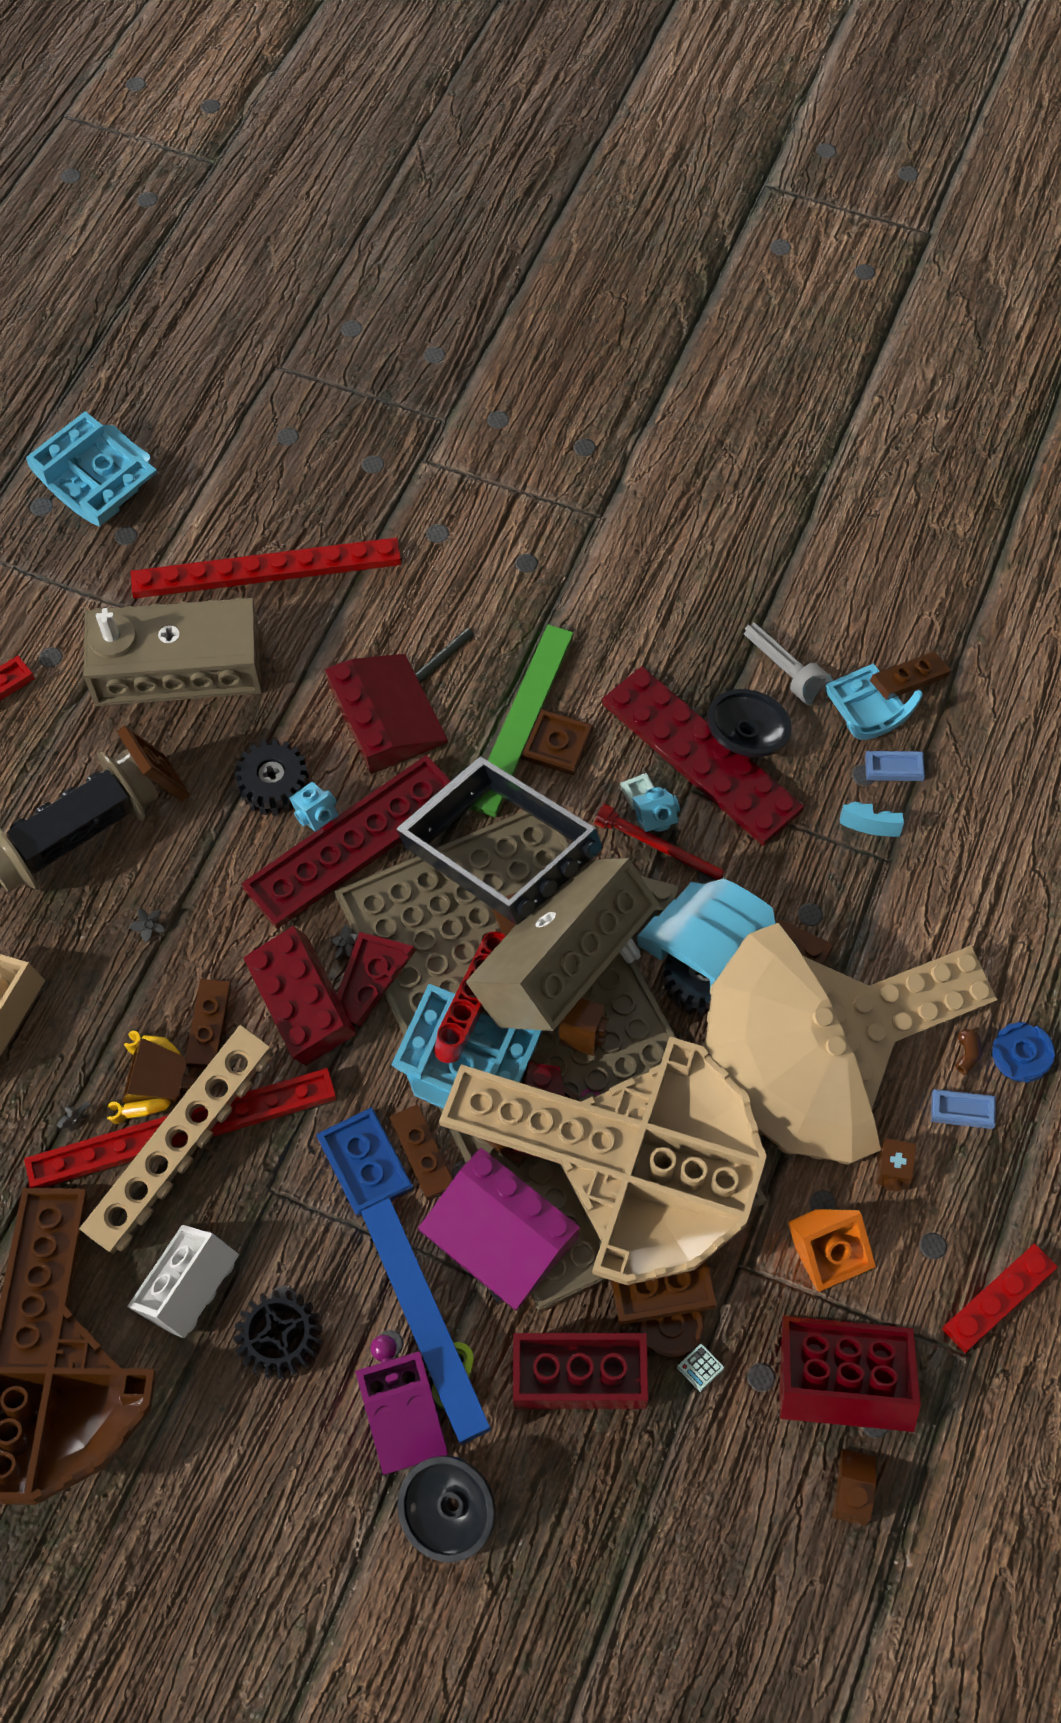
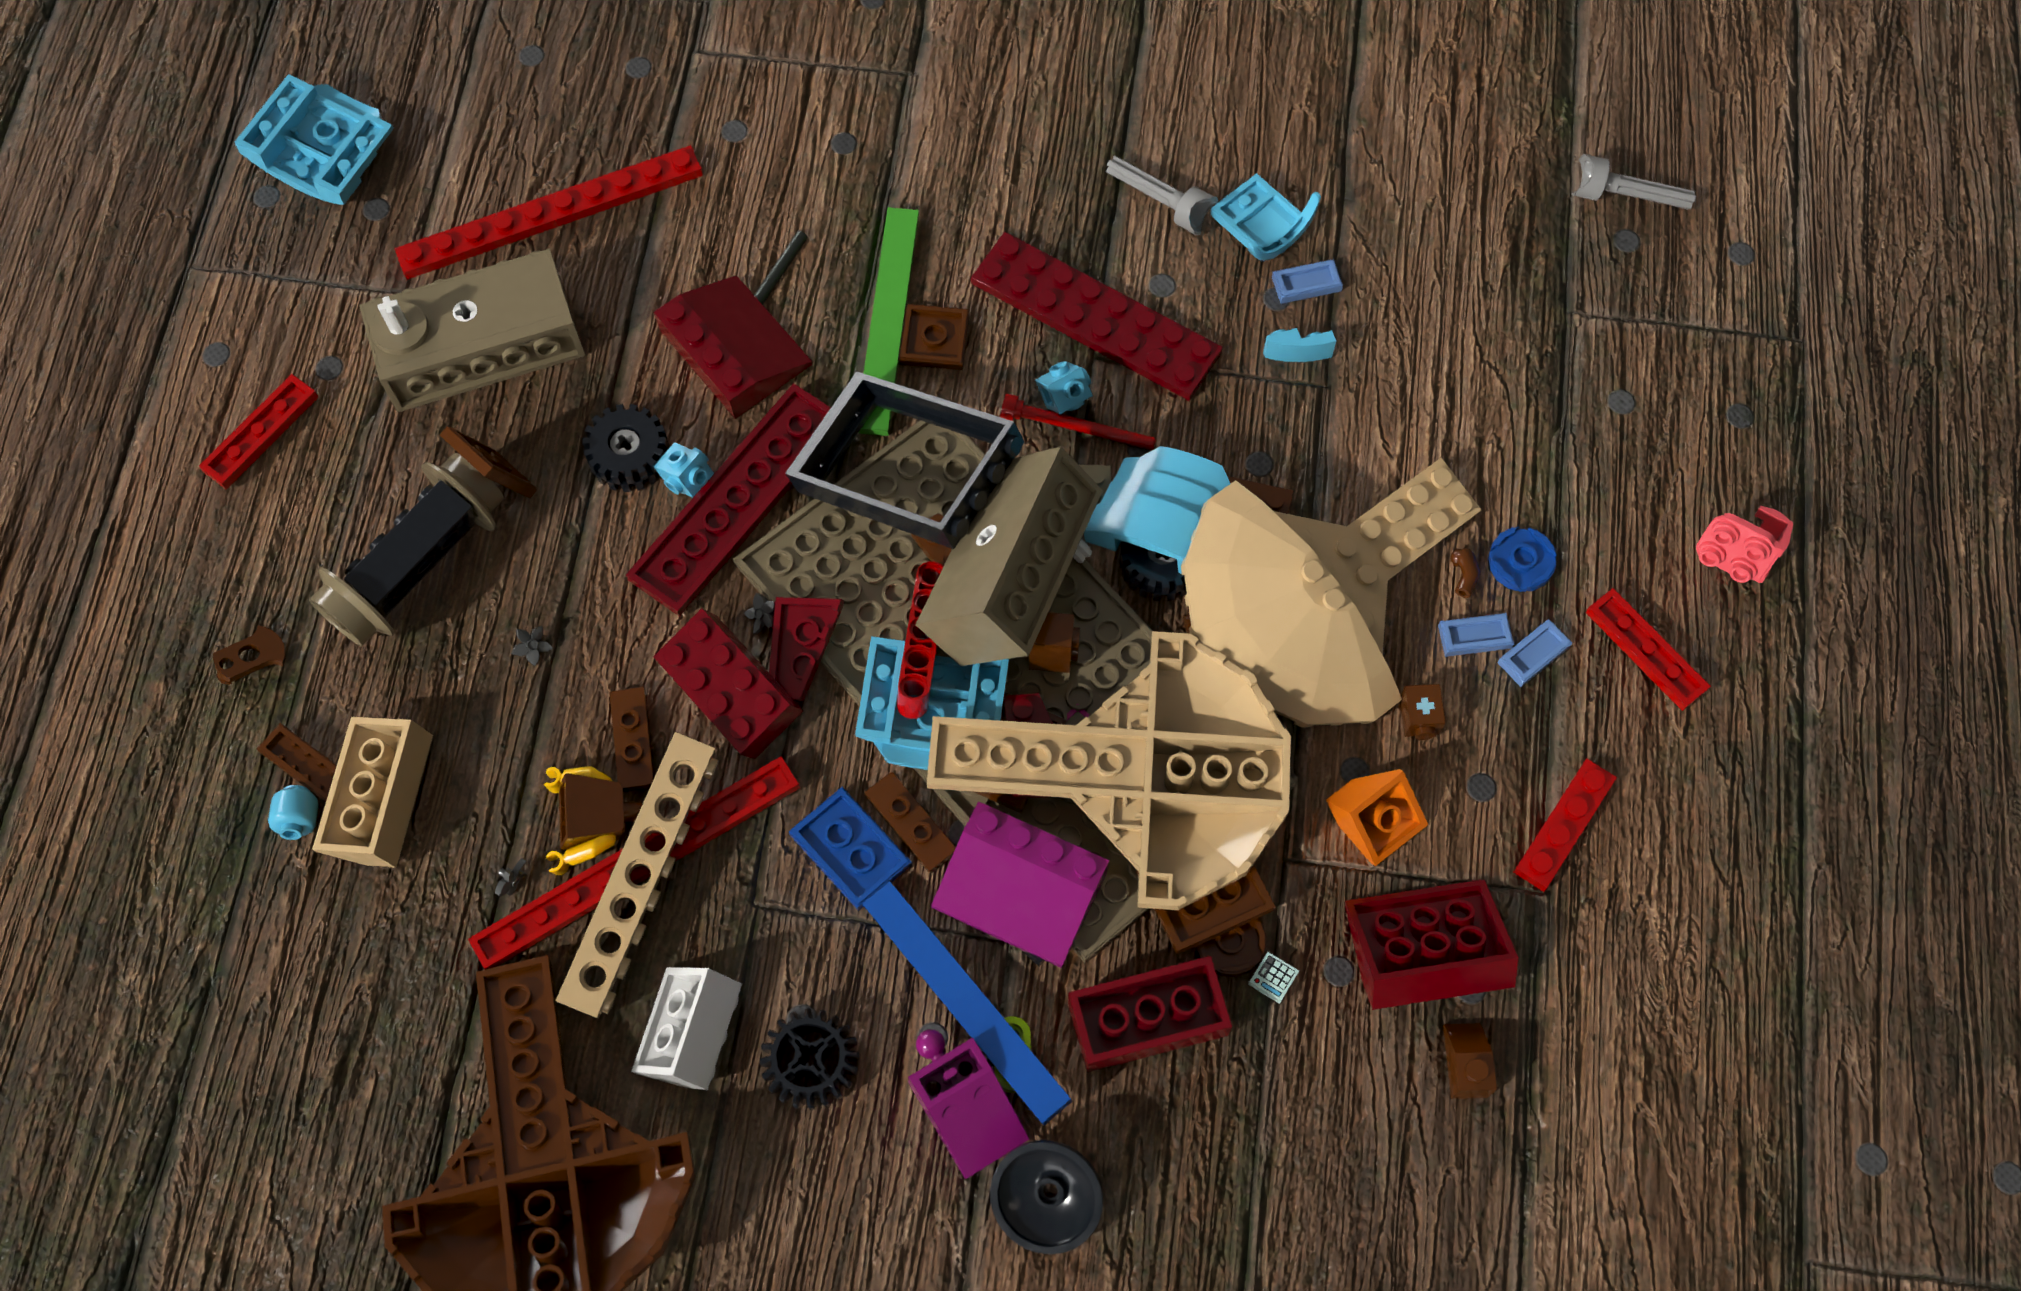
camera: 15 degrees left, 5 degrees up
(636, 787) = (1034, 368): light aqua tile -> none
(749, 723) = (1140, 268): black dish -> none
(910, 675) = (1299, 178): reddish brown plate -> none
(1012, 1137) = (1534, 652): none -> medium blue tile

